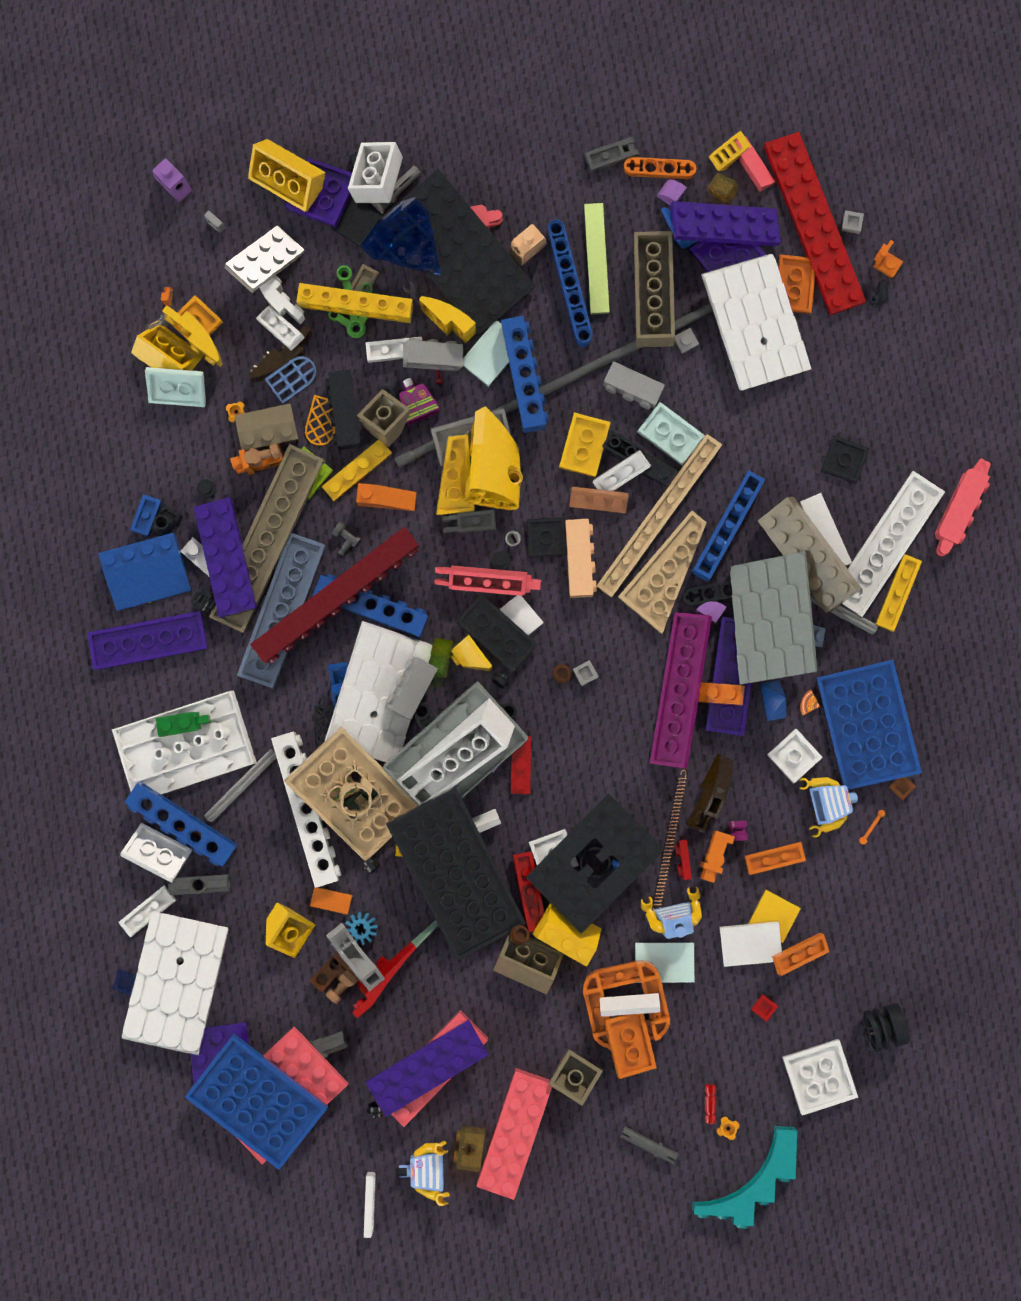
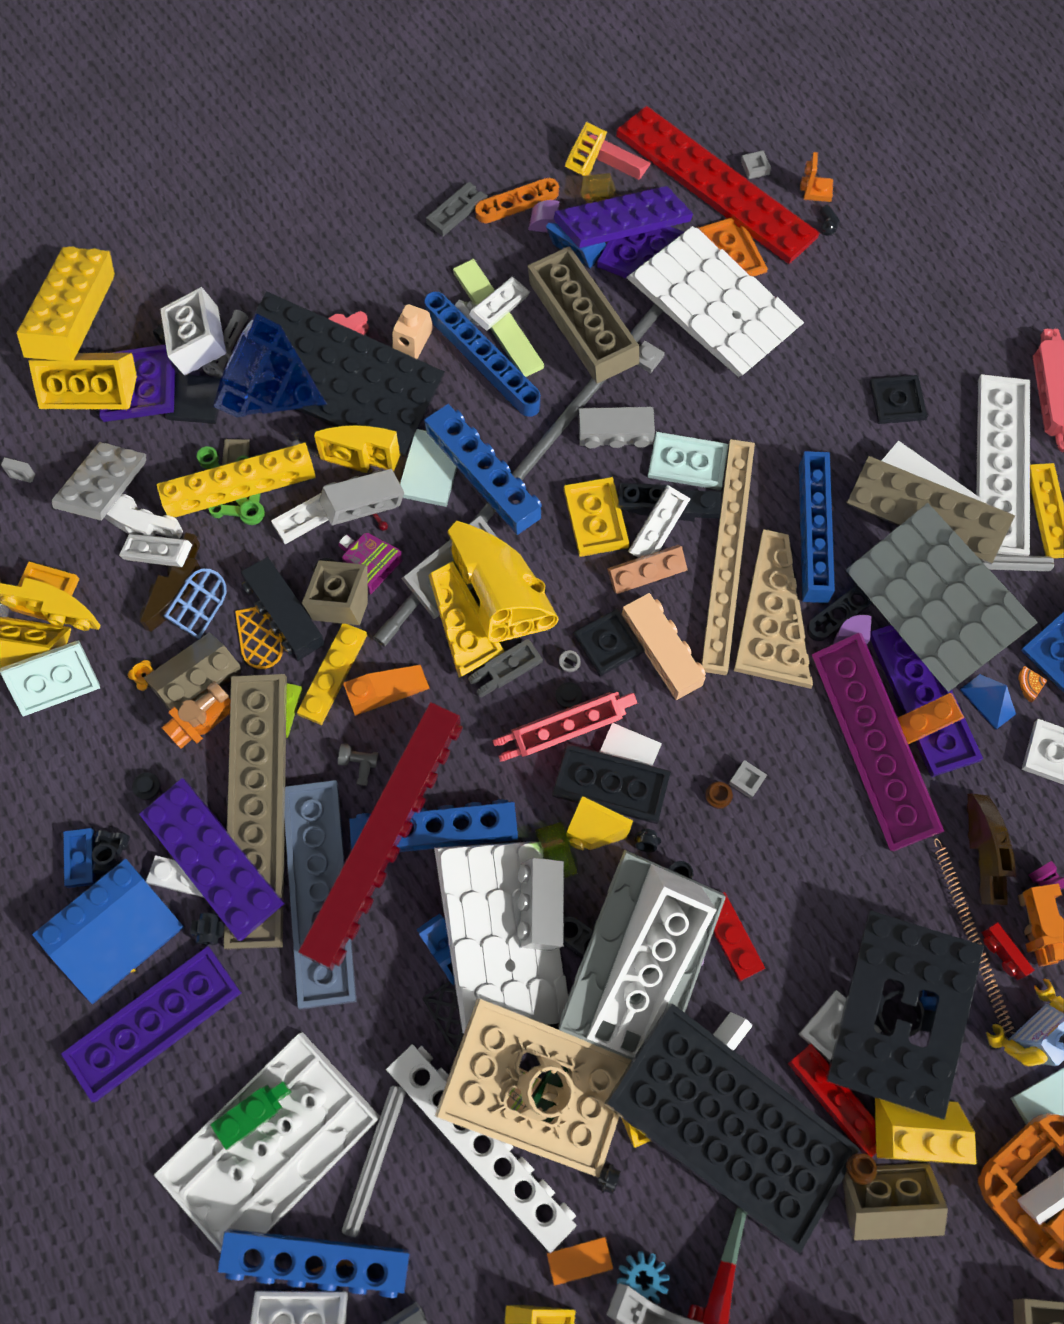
camera: 30 degrees left, 15 degrees down
(297, 110) = (66, 304): none -> yellow brick
(577, 246) = (465, 308): none -> light grey plate
(601, 250) = (499, 303): none -> white tile

